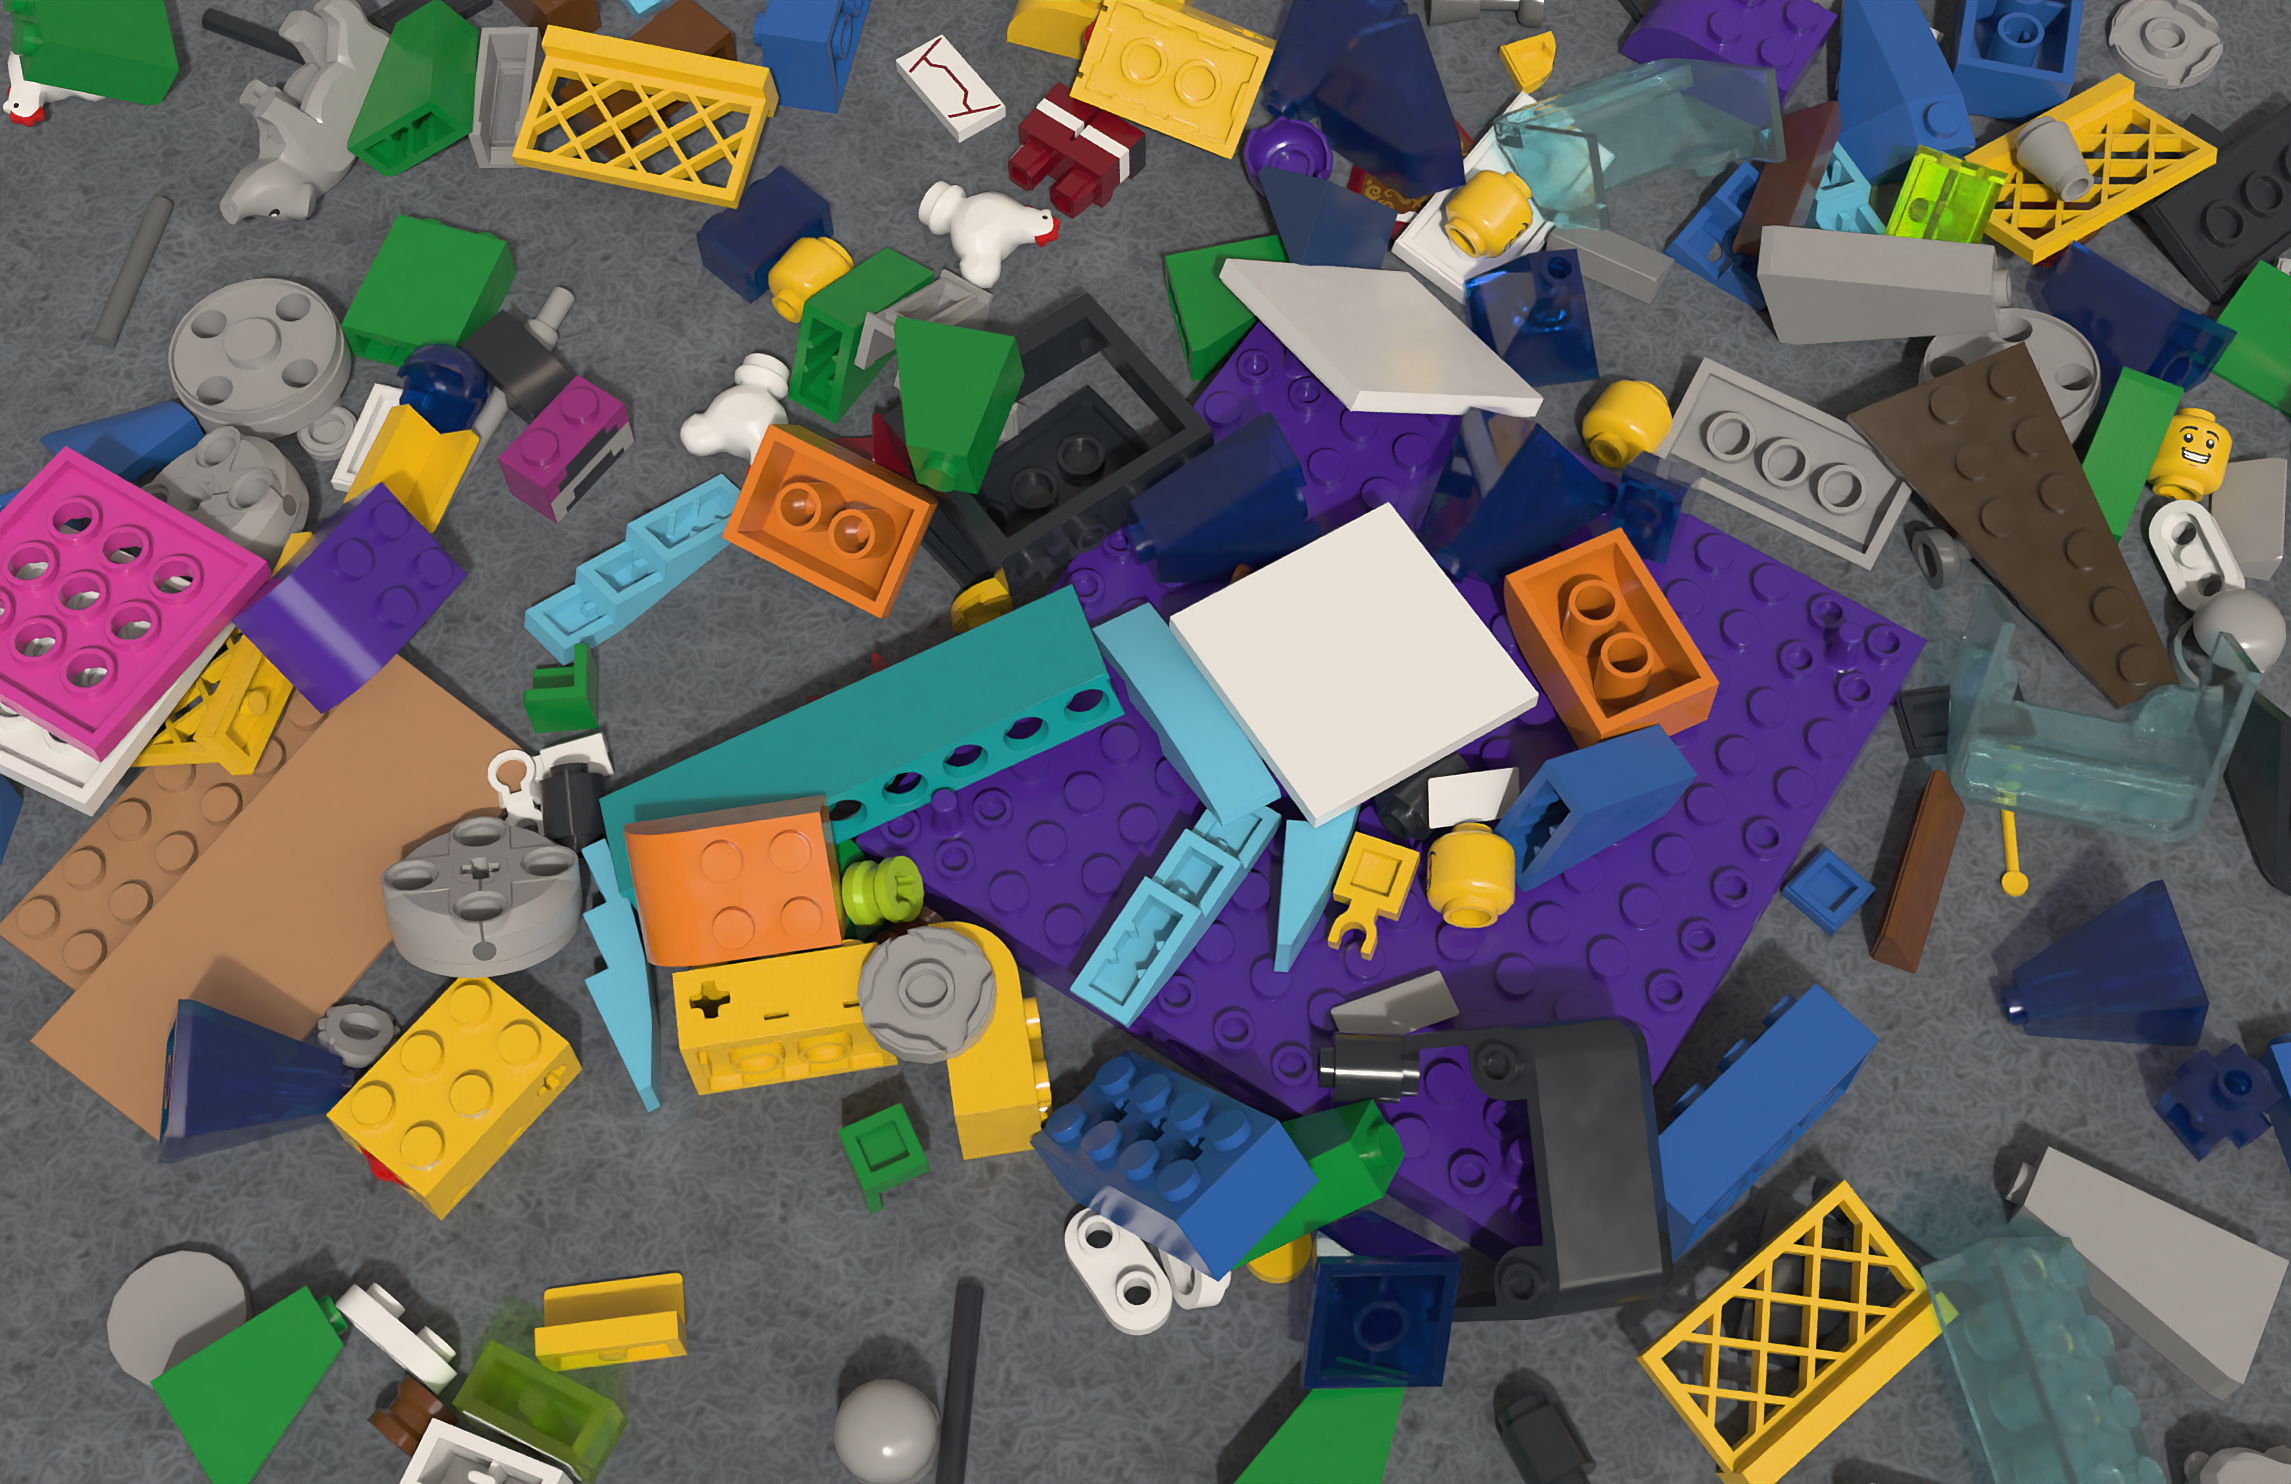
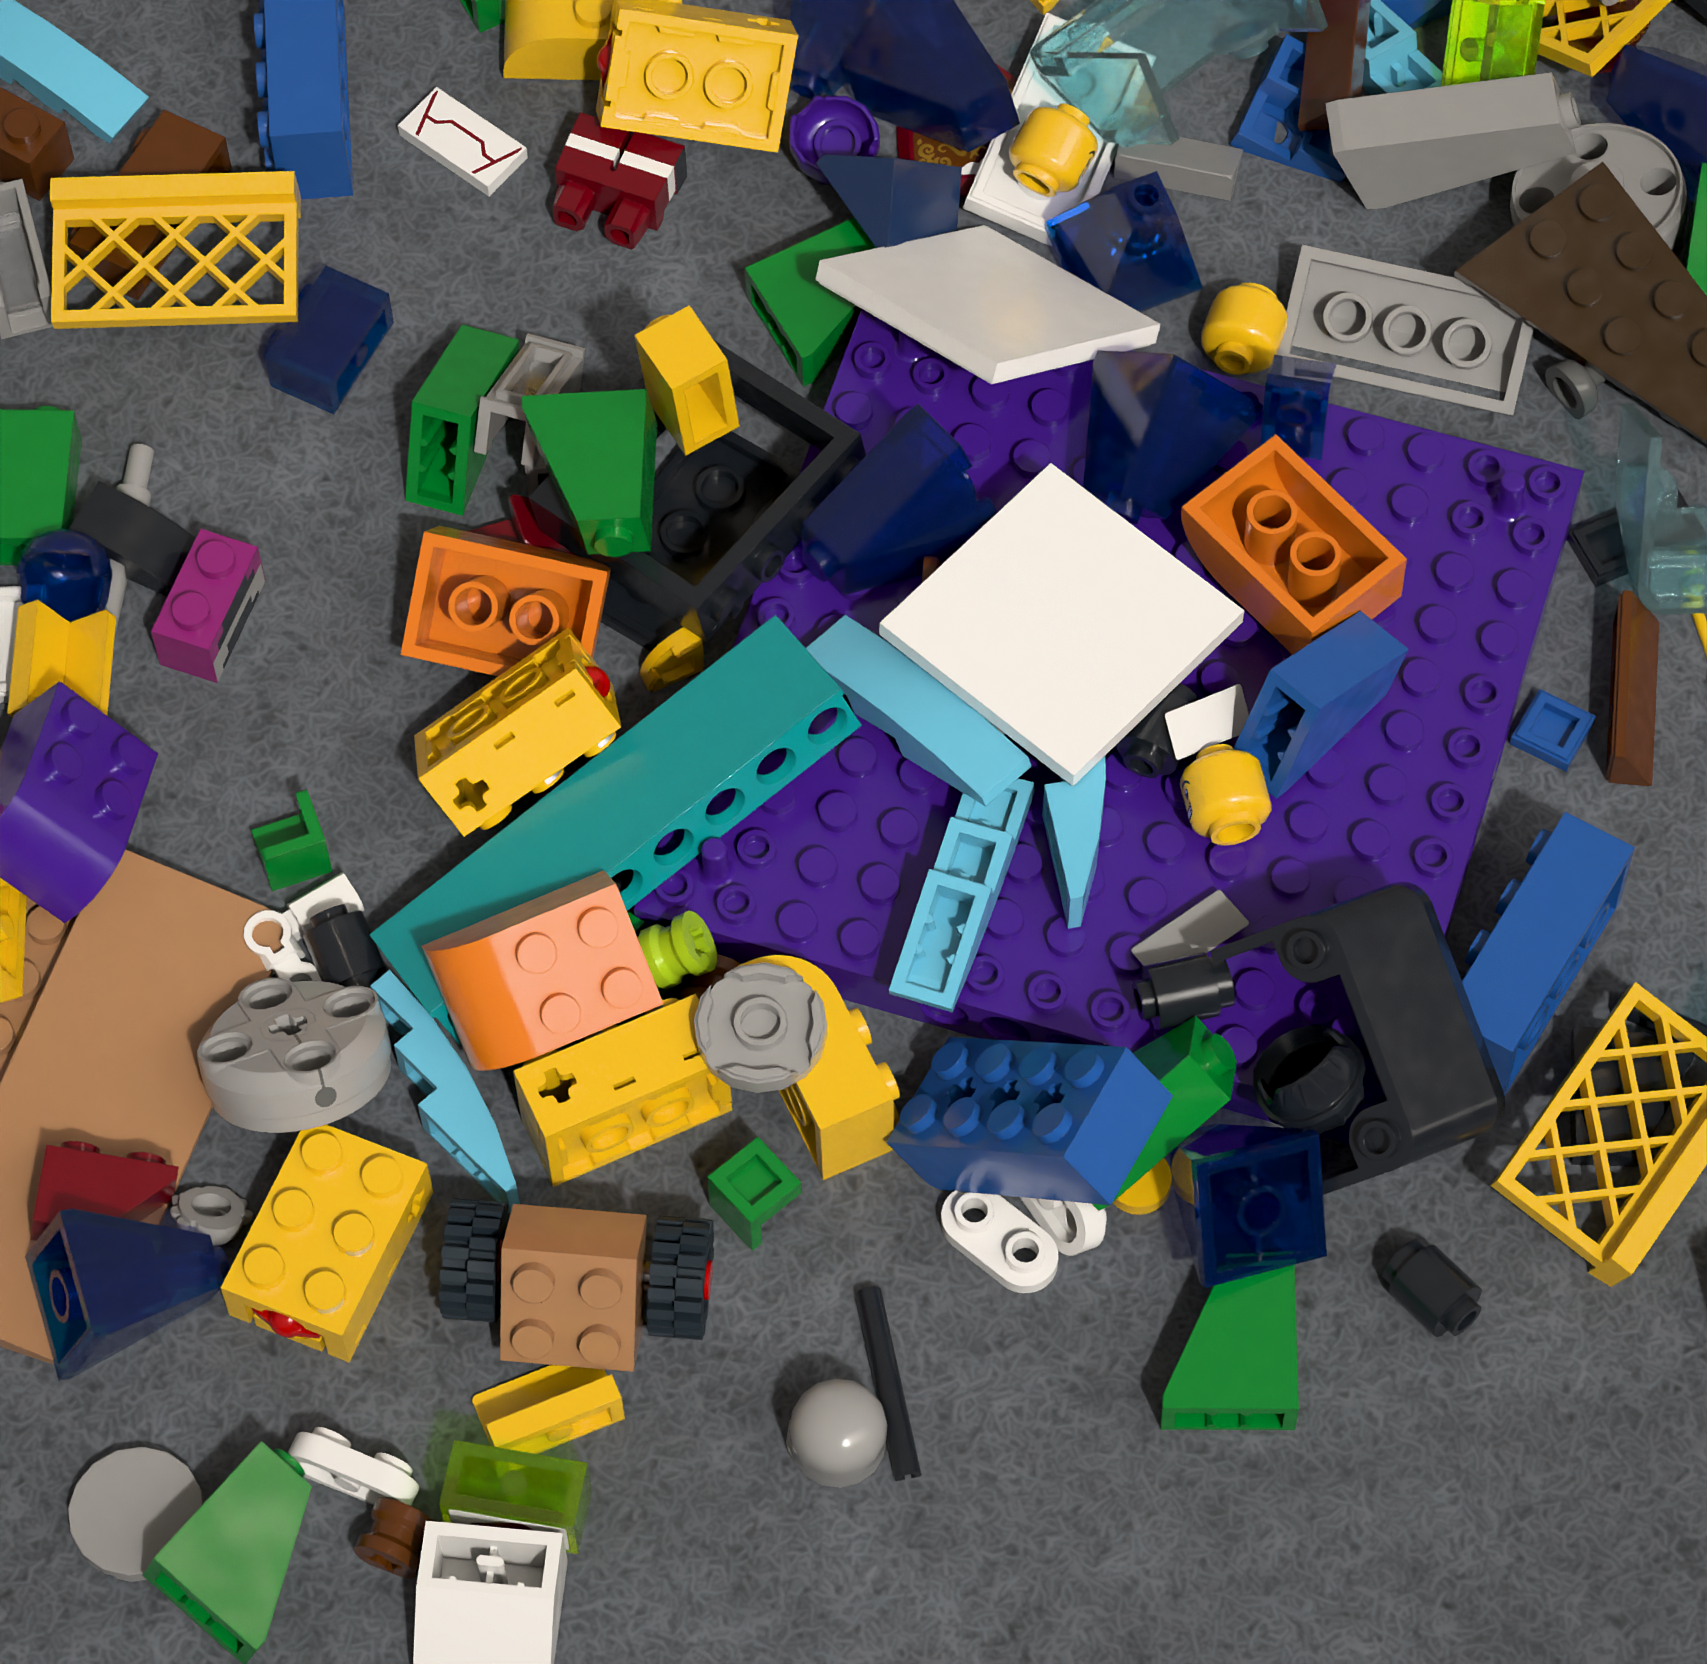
camera: 15 degrees left, 0 degrees up
(247, 982) = (101, 1183): none -> dark red slope
(637, 573) = (322, 707): medium azure slope -> none
(675, 1204) = (574, 1280): none -> medium nougat brick
(741, 413) = (375, 531): white animal -> none
(797, 640) = (517, 733): none -> yellow piece
(805, 271) = (389, 374): yellow head -> none
(984, 228) = (550, 281): white animal -> none
(1056, 336) = (687, 379): none -> yellow brick
(1373, 884) = (1137, 824): yellow plate -> none
(1471, 1197) = (1310, 1079): none -> black piece

